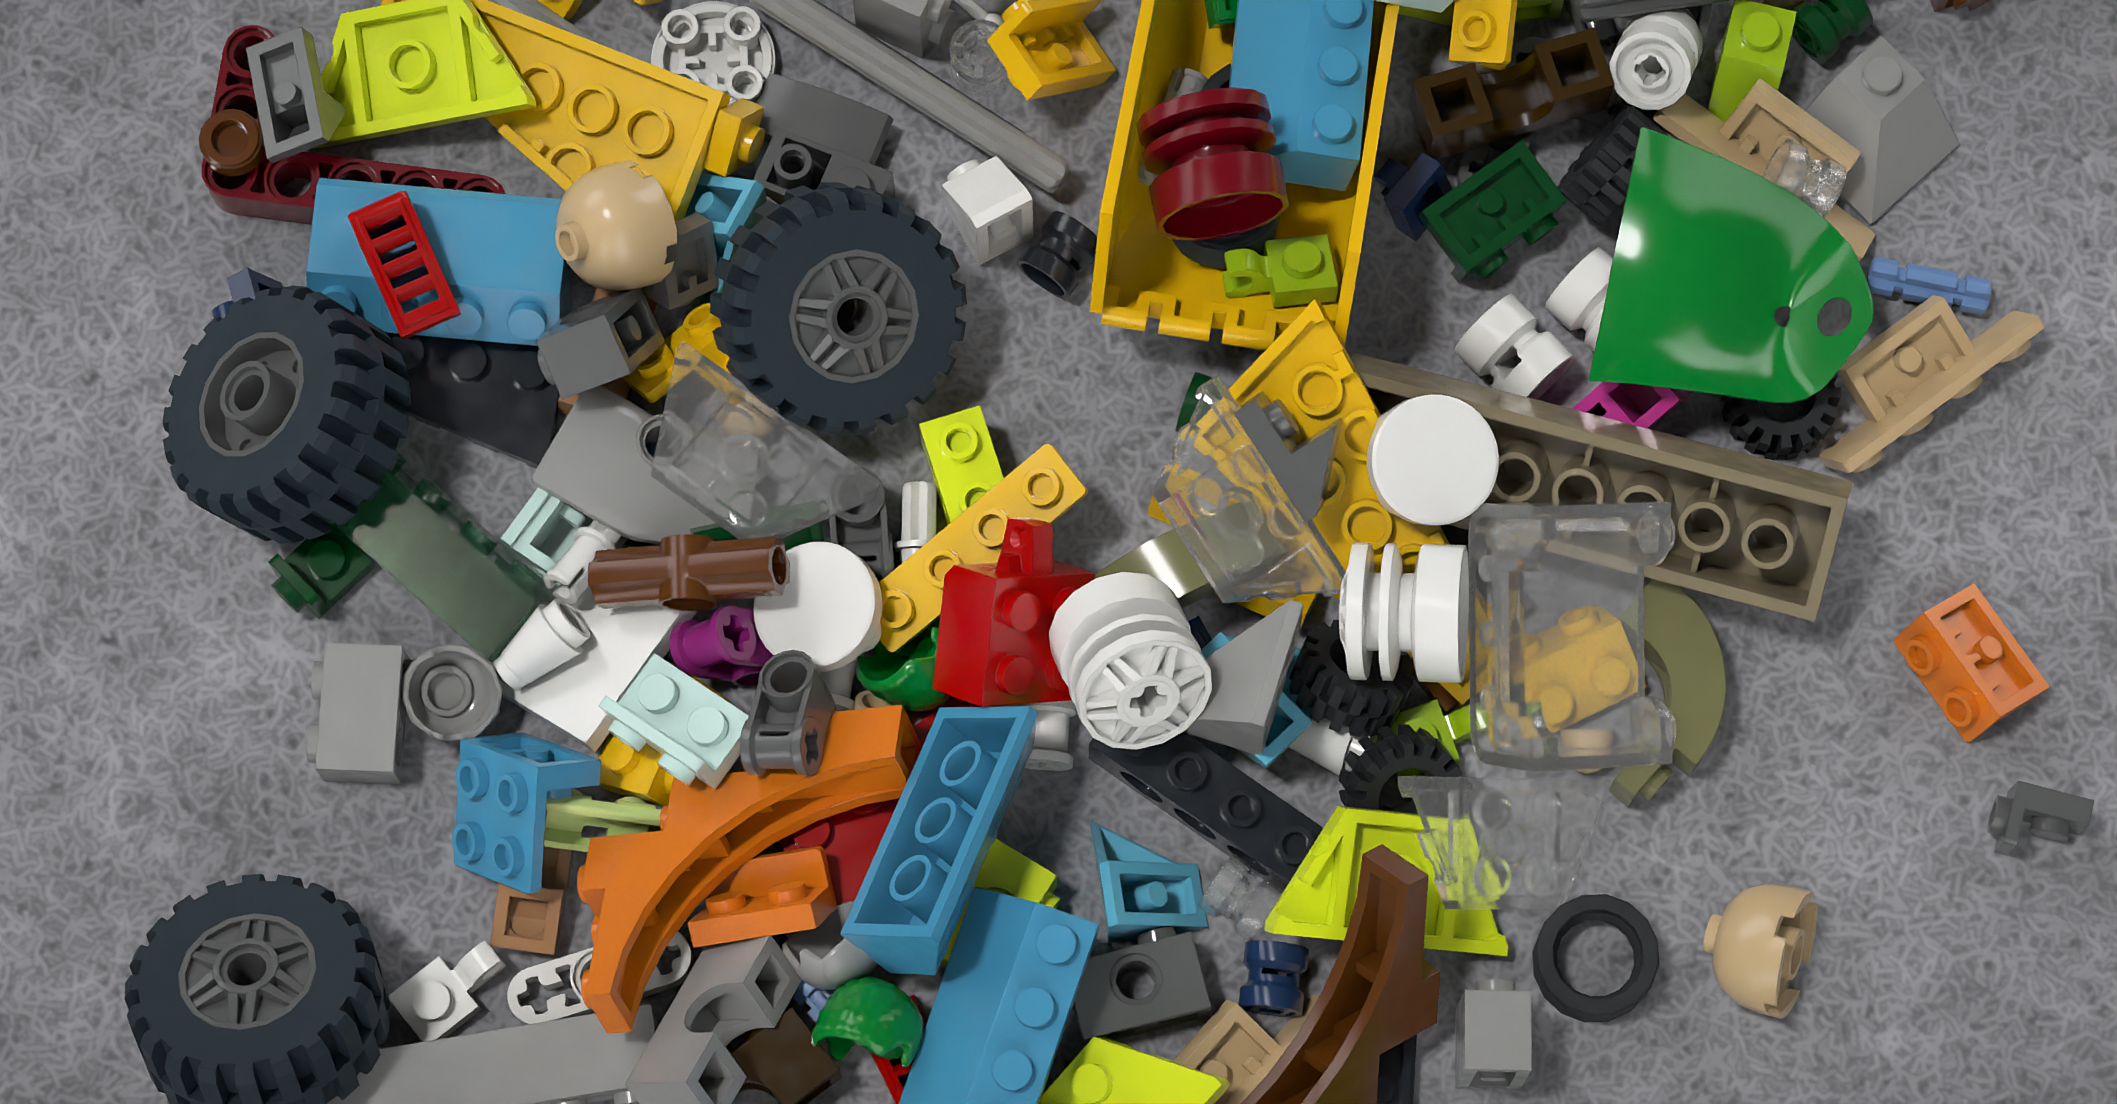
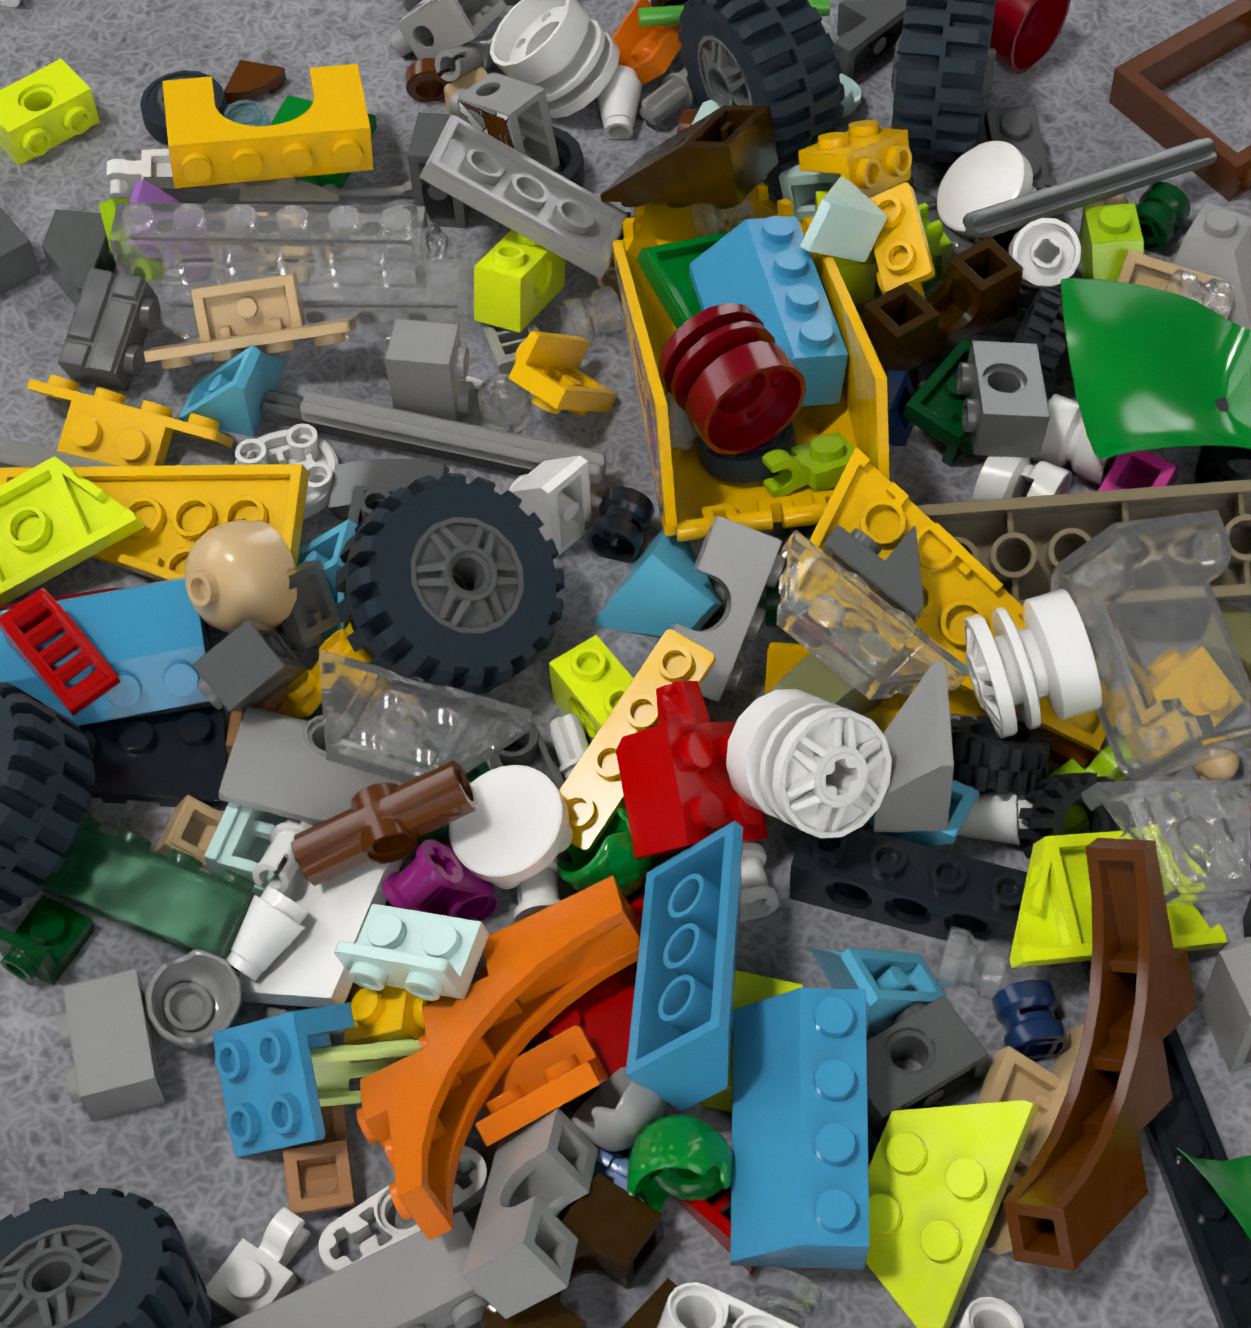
camera: 15 degrees left, 20 degrees down
(496, 490) = (190, 829): none -> tan slope
(735, 137) = (321, 506): yellow plate -> none
(787, 717) = (511, 911): dark grey piece -> none
(1072, 358) = (660, 592): none -> medium azure slope
(1155, 378) = (742, 565): none -> light grey arch
(1432, 460) = (1002, 543): white tile -> none
(1542, 222) = (1004, 399): none -> dark grey brick

